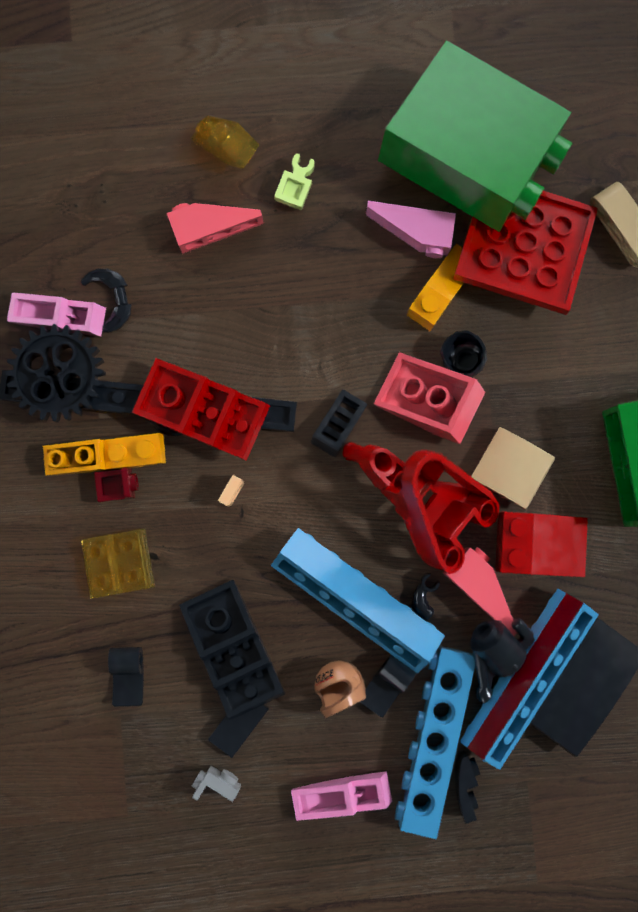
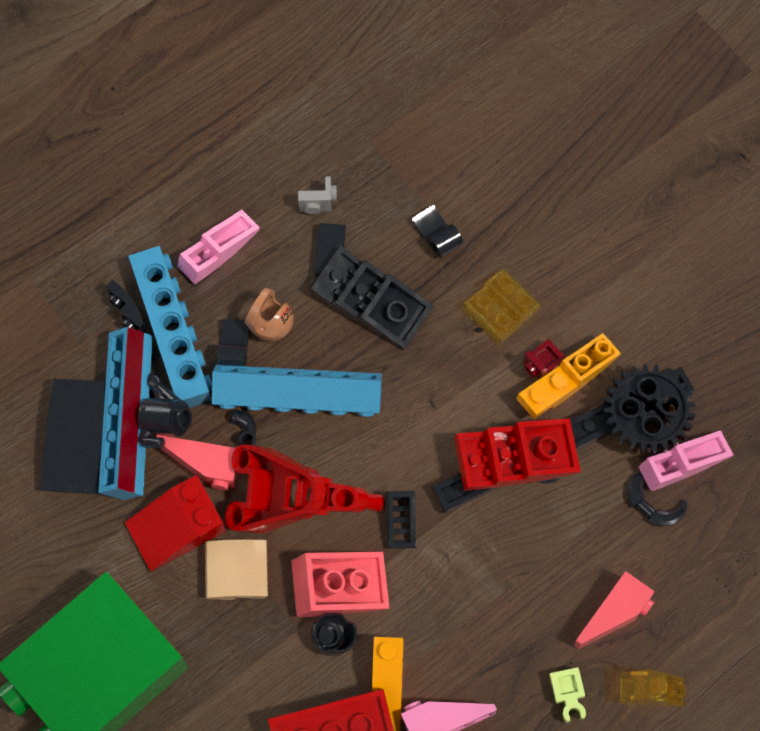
camera: 150 degrees right, 15 degrees down
(231, 491) = (450, 411): light nougat tile -> none

